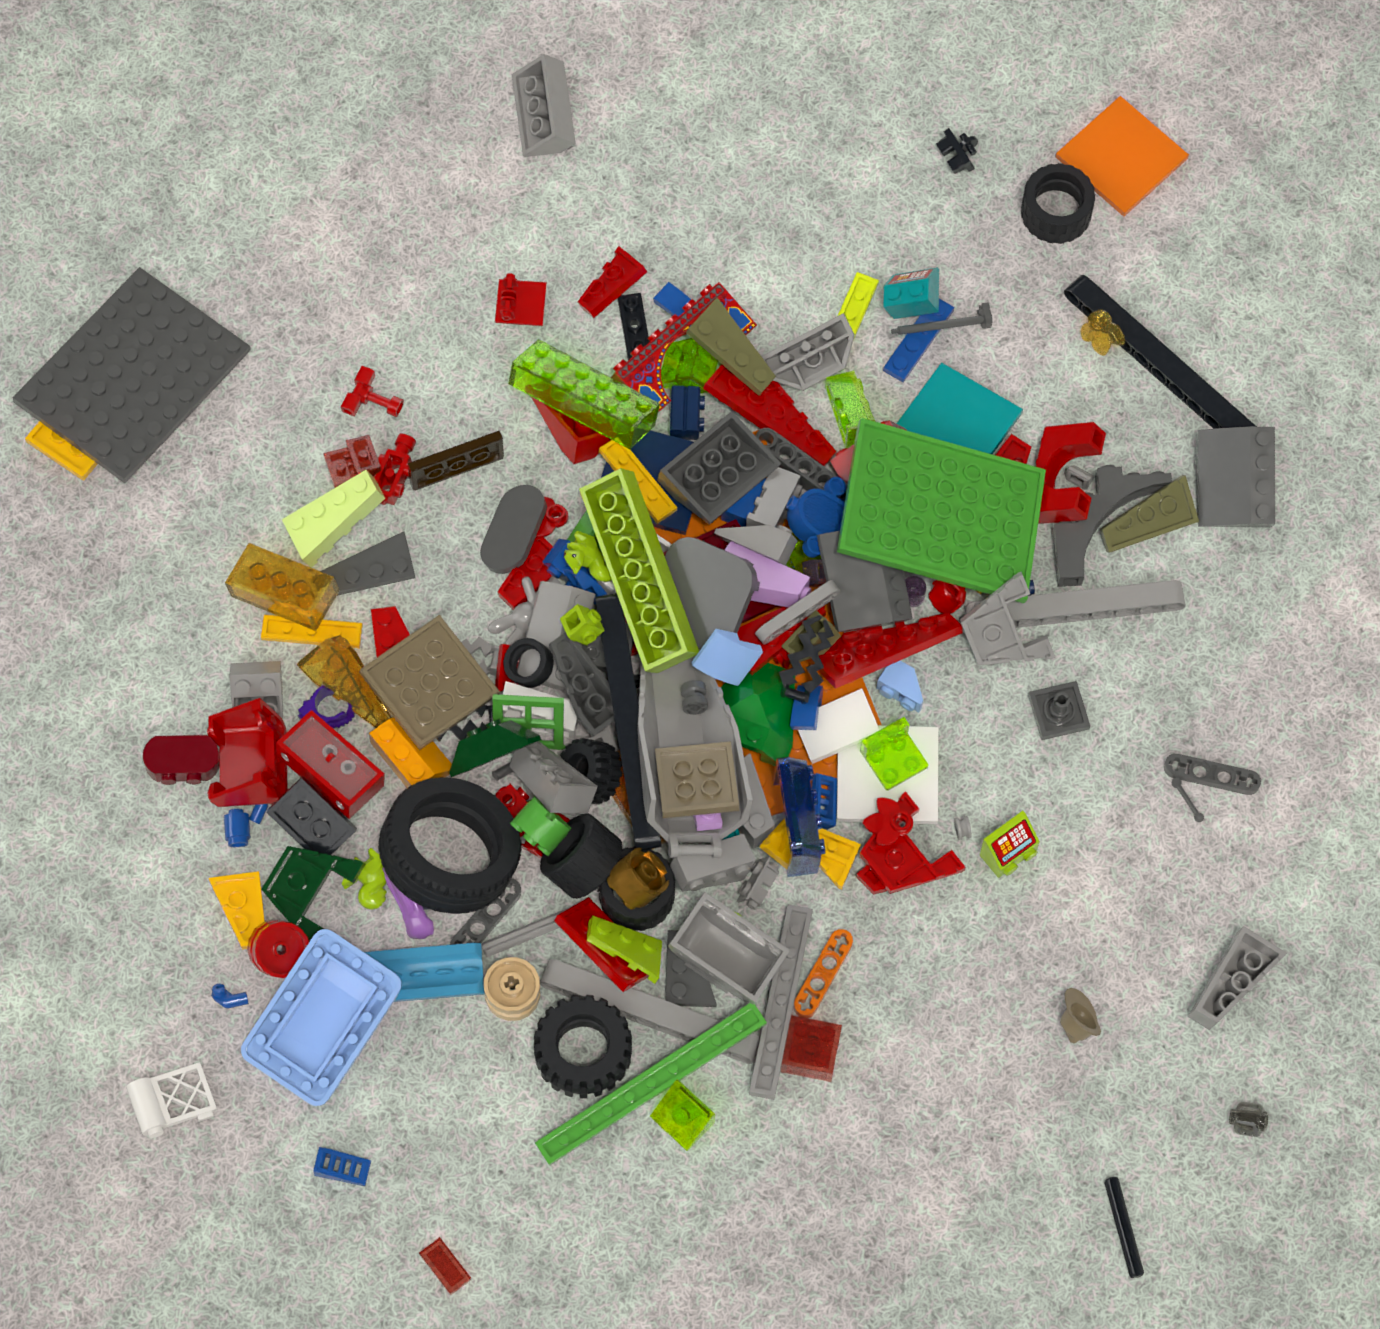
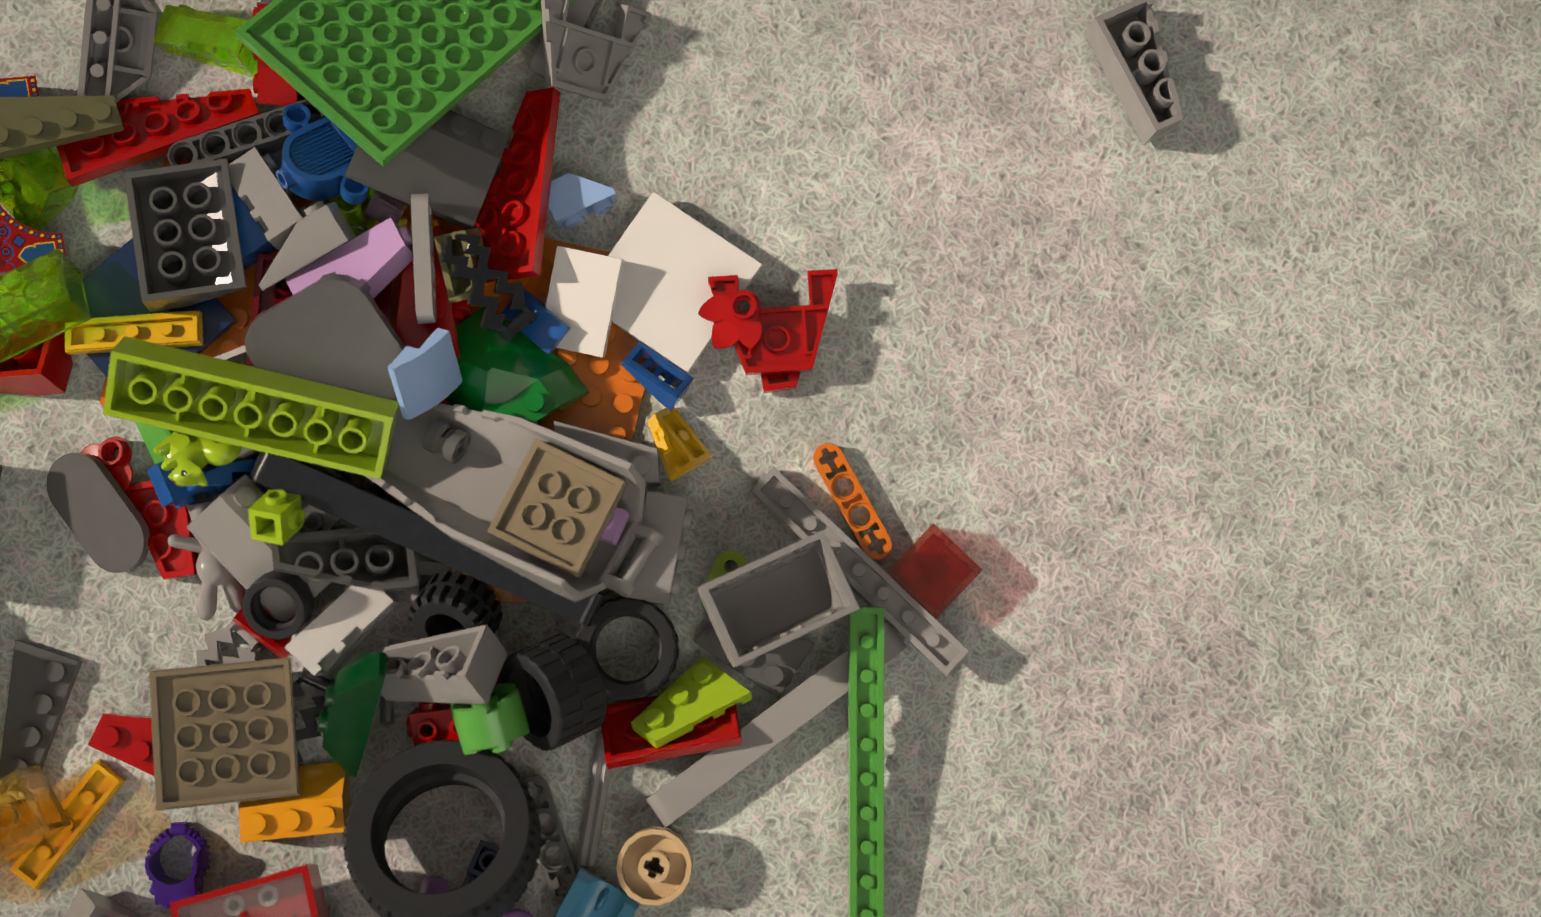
camera: 60 degrees left, 15 degrees up
(338, 668) = (131, 831): clear yellow wedge -> none
(529, 723) = (332, 640): bright green window -> none
(575, 1014) = (782, 875): black tyre -> none
(638, 878) = (627, 646): pearl gold brick -> none
(683, 1115) = (921, 763): clear neon green slope -> none
(685, 412) = (88, 226): dark blue brick -> none
(761, 873) = (707, 519): light grey hinge -> none
(800, 817) = (668, 413): clear blue windscreen -> none
(838, 857) = (722, 403): yellow wing -> none
(893, 754) = (658, 262): clear neon green bracket -> none
(916, 595) = (475, 102): clear purple wheel -> none
(947, 596) = (506, 83): red hair -> none
(962, 827) = (783, 241): light grey bush -> none
(1010, 845) = (840, 204): slope -> none
(1059, 710) = (715, 49): dark grey plate -> none
(1079, 1017) = (1079, 260): dark tan piece -> none
(1124, 1227) = (1331, 365): black axle -> none
(1249, 1119) = (1298, 156): clear smoke head -> none

